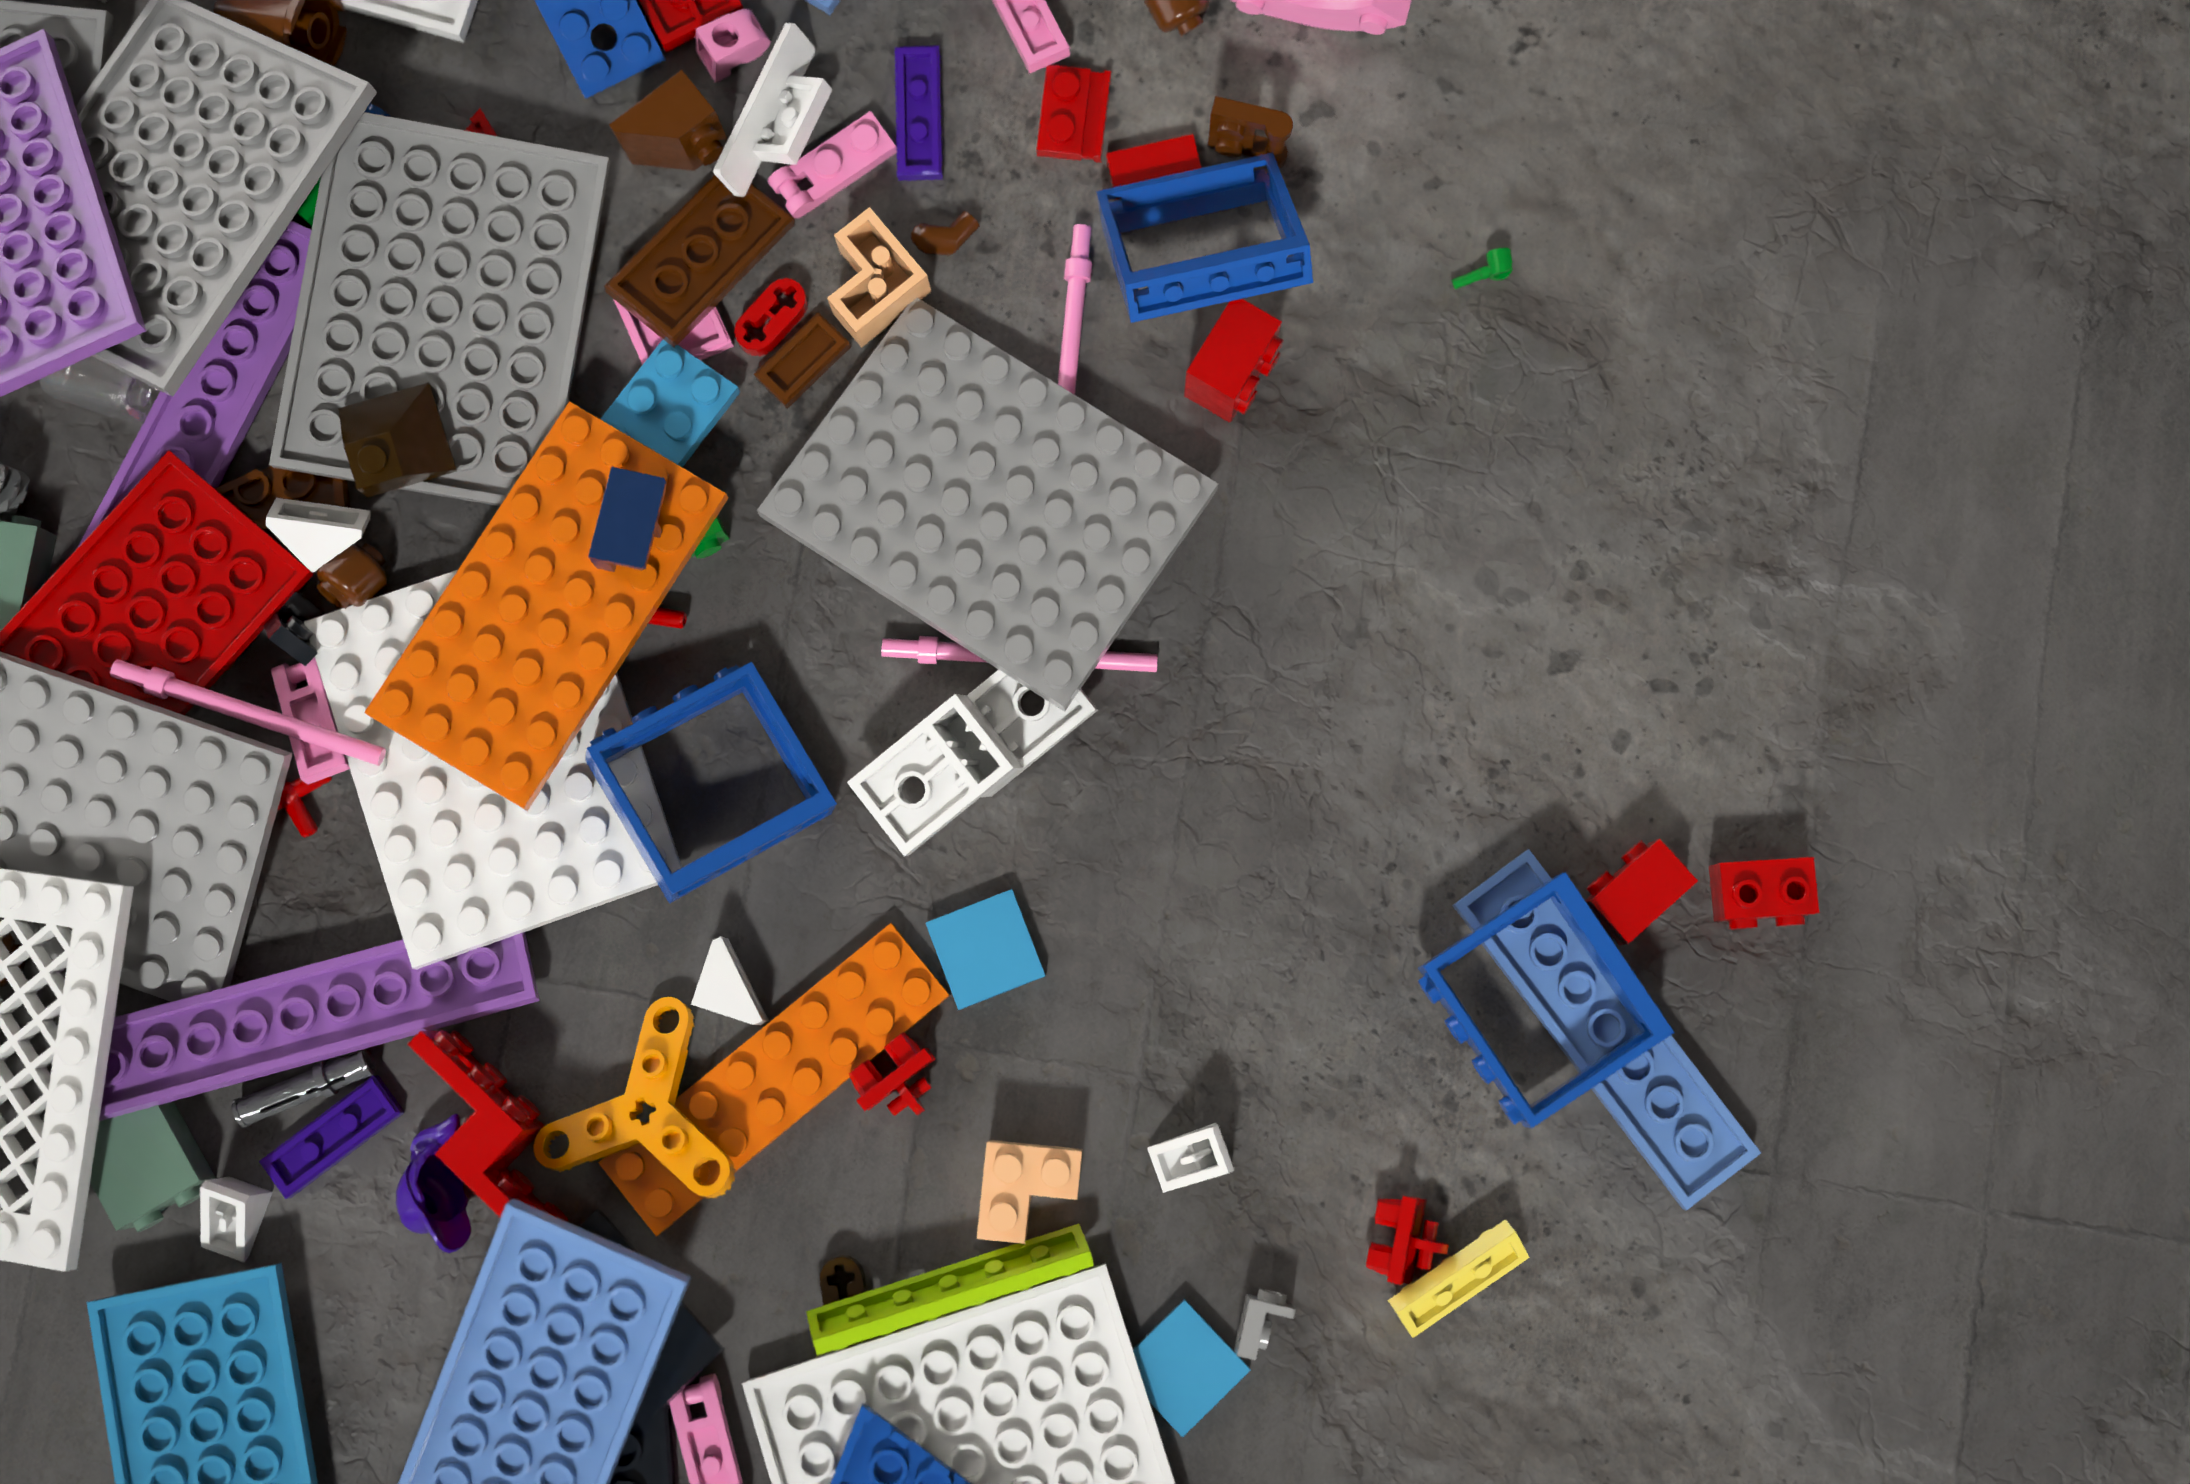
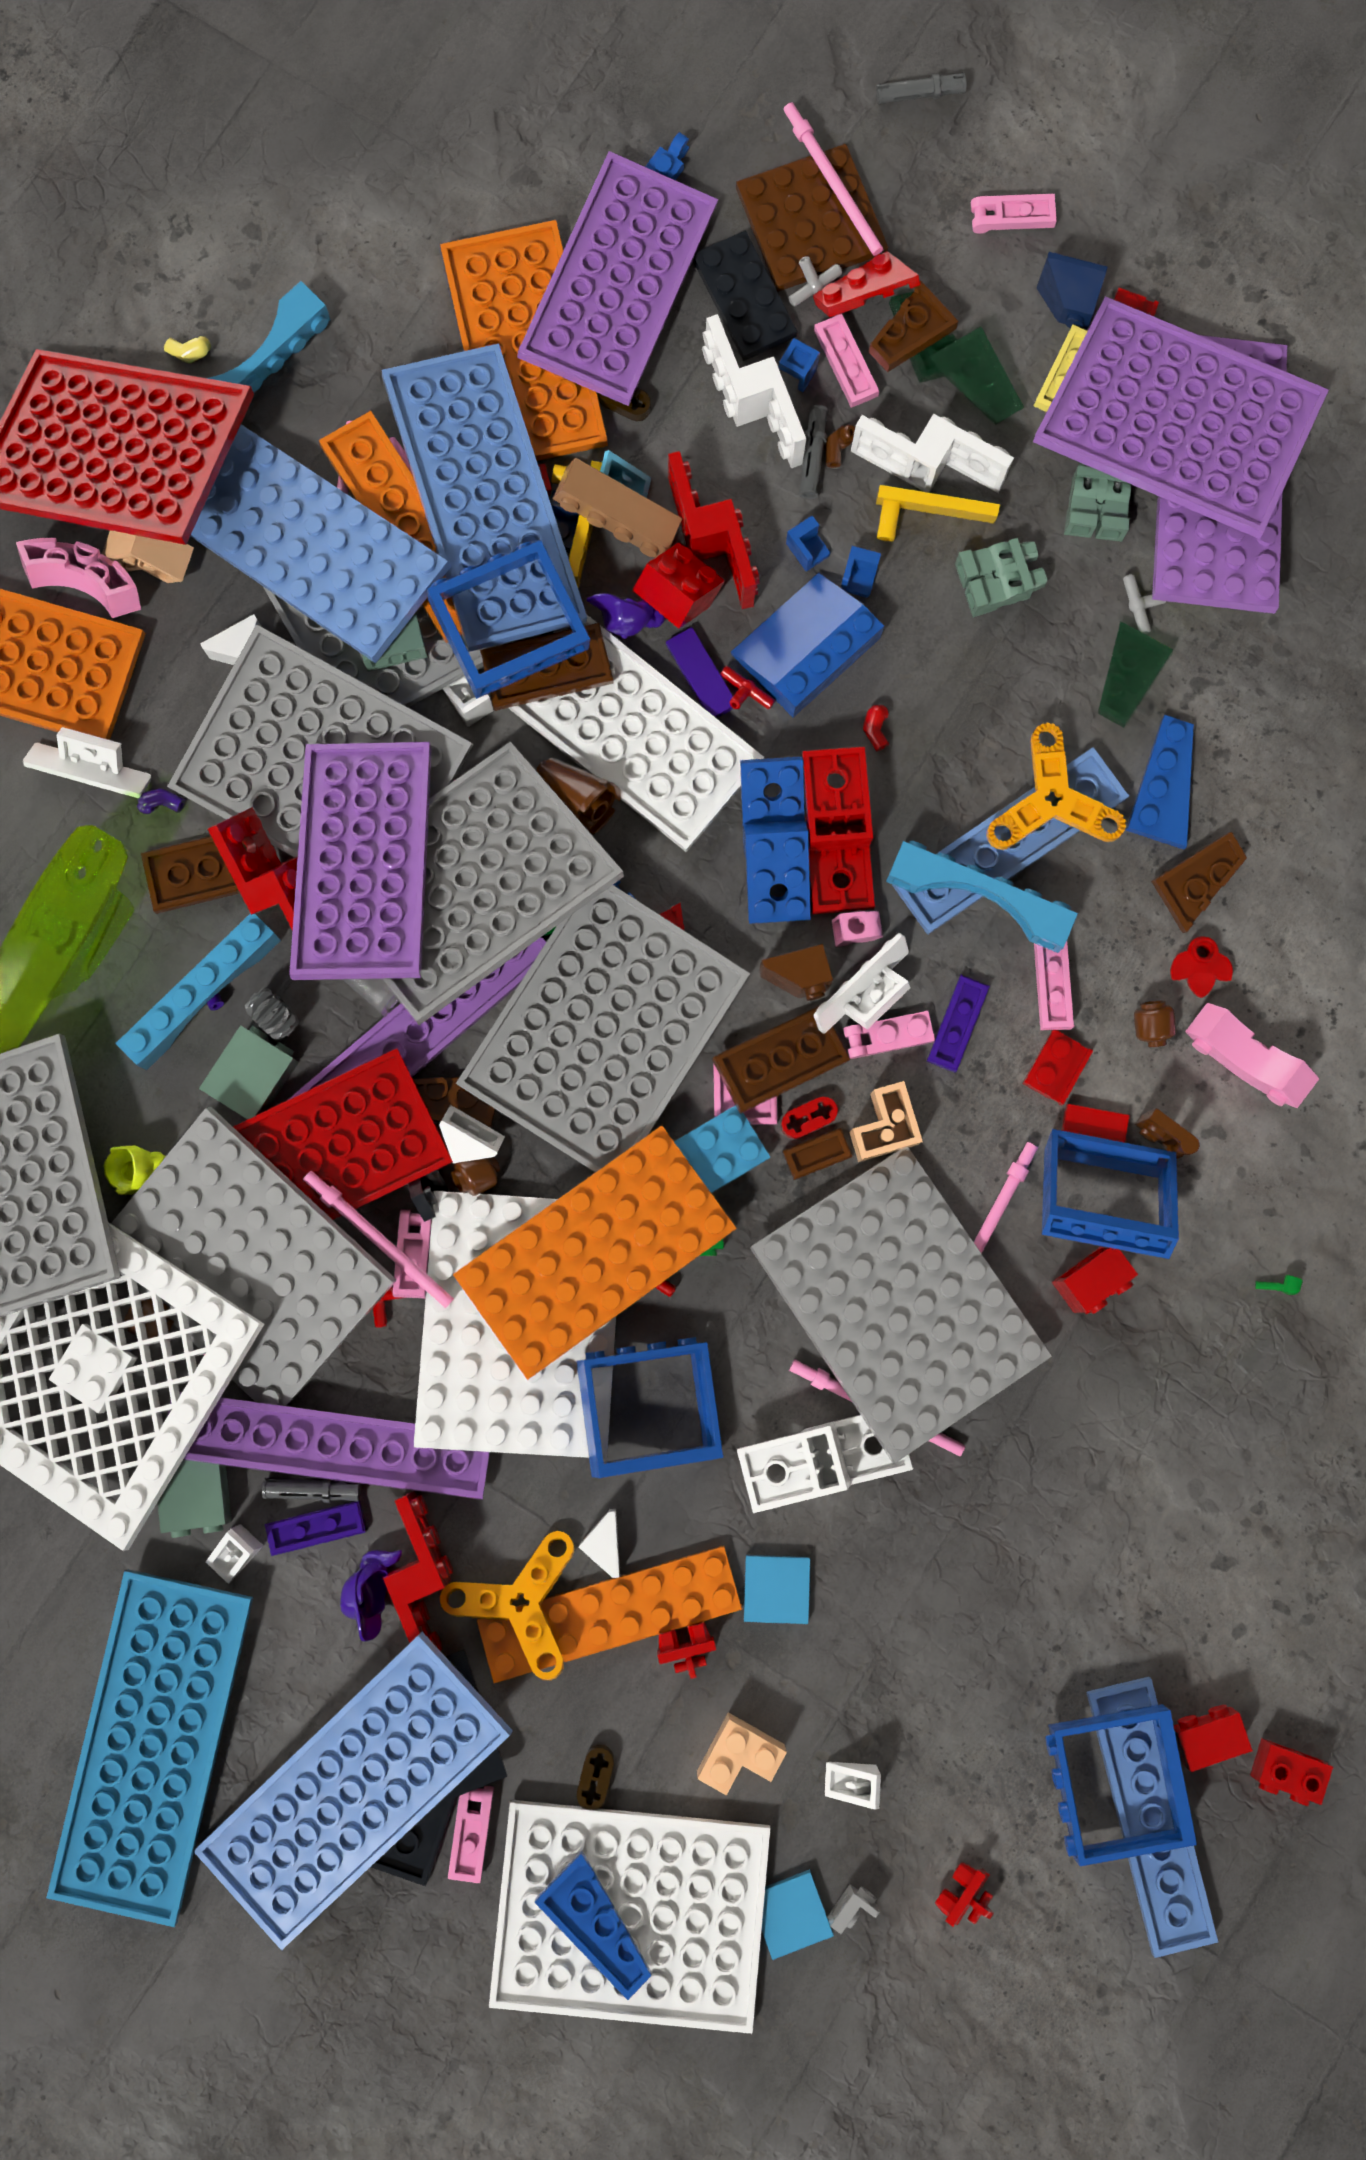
camera: 15 degrees right, 0 degrees up
(395, 440) = (542, 1101): dark brown slope -> none
(627, 520) = (671, 1226): dark blue panel -> none
(943, 239) = (940, 1115): reddish brown arm -> none
(948, 1289) = (665, 1801): lime plate -> none
(1459, 1278) = (990, 1936): light yellow plate -> none

